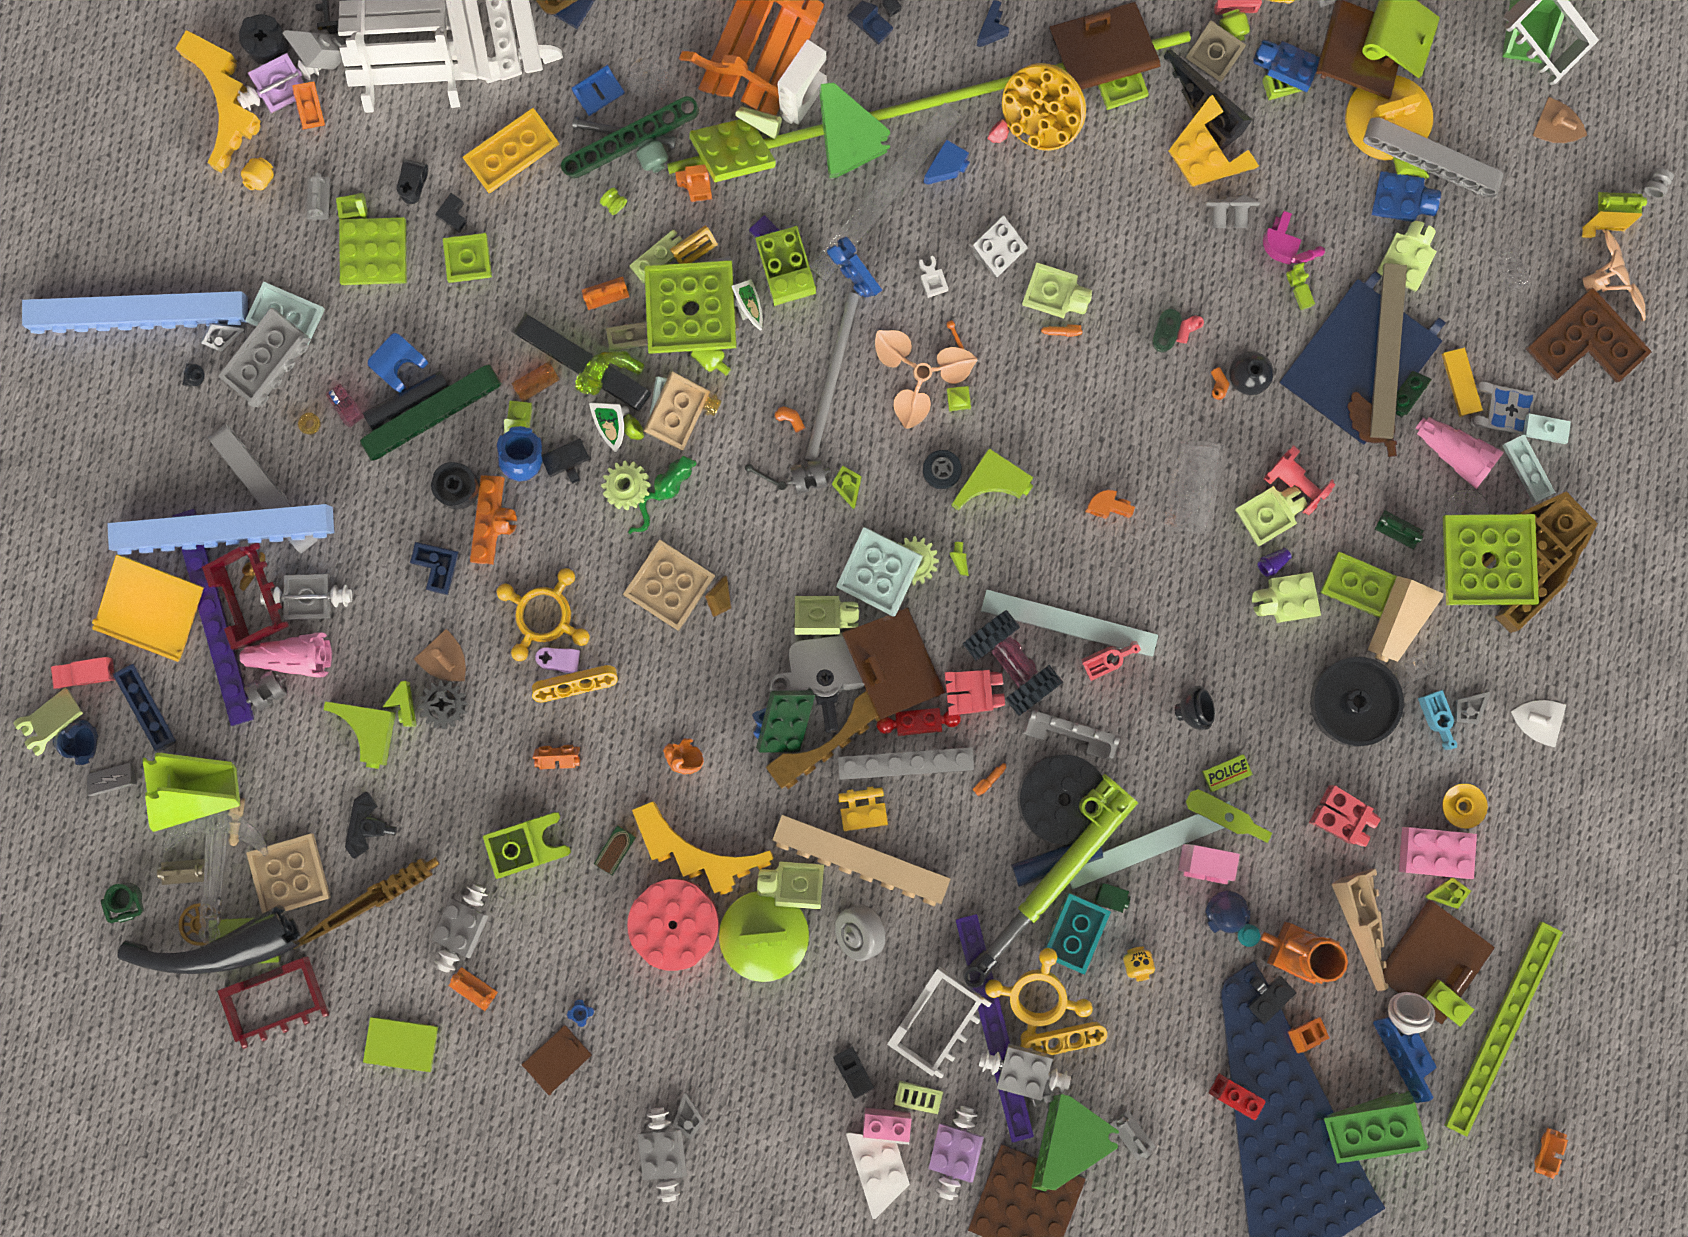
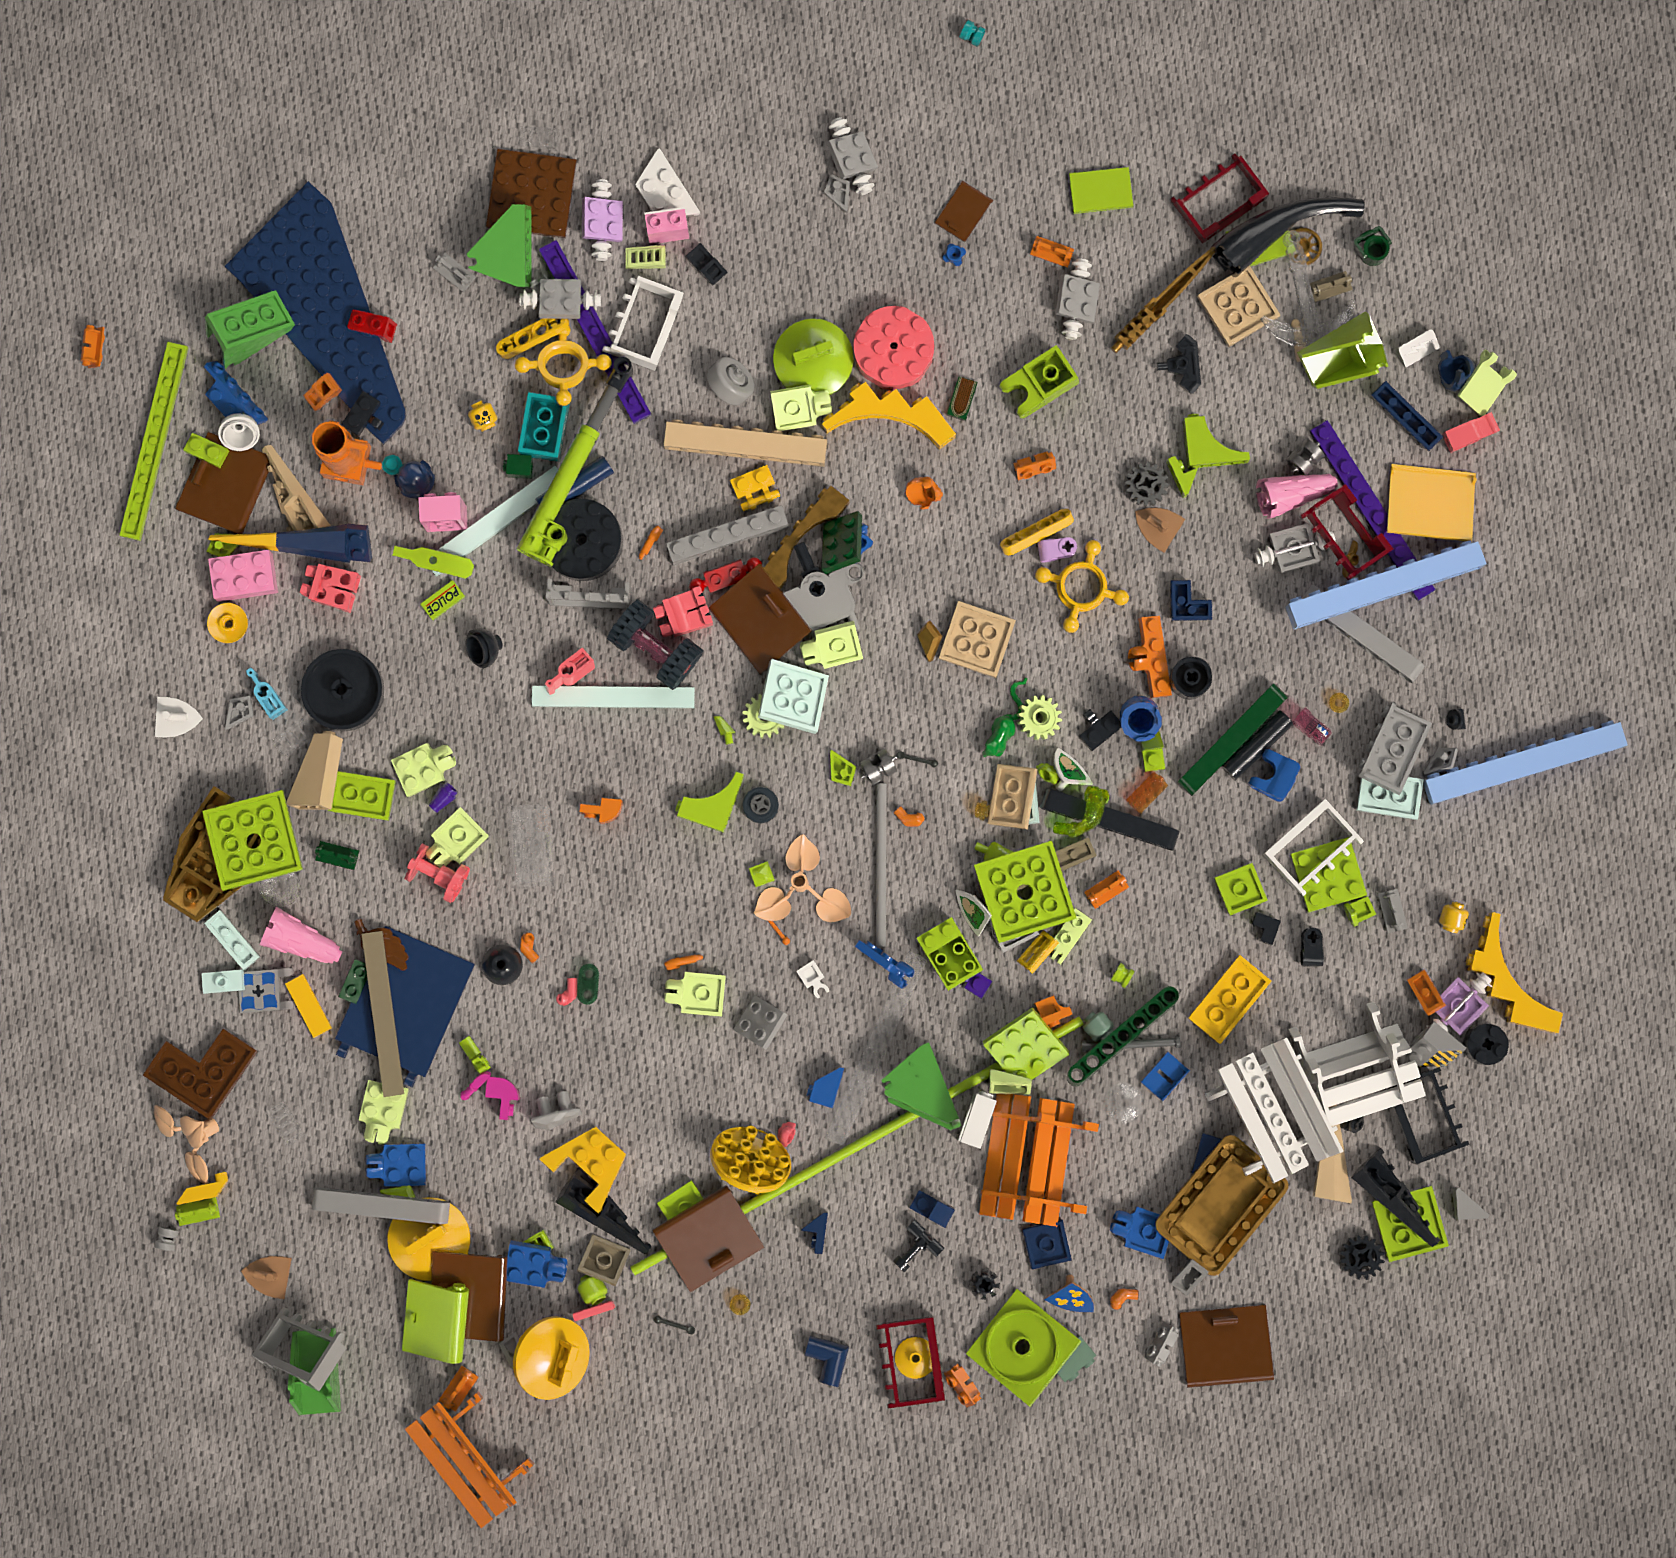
camera: 165 degrees right, 0 degrees up
(367, 314) = (1271, 852): none -> white hinge
(1330, 862) = (335, 543): none -> dark blue plate

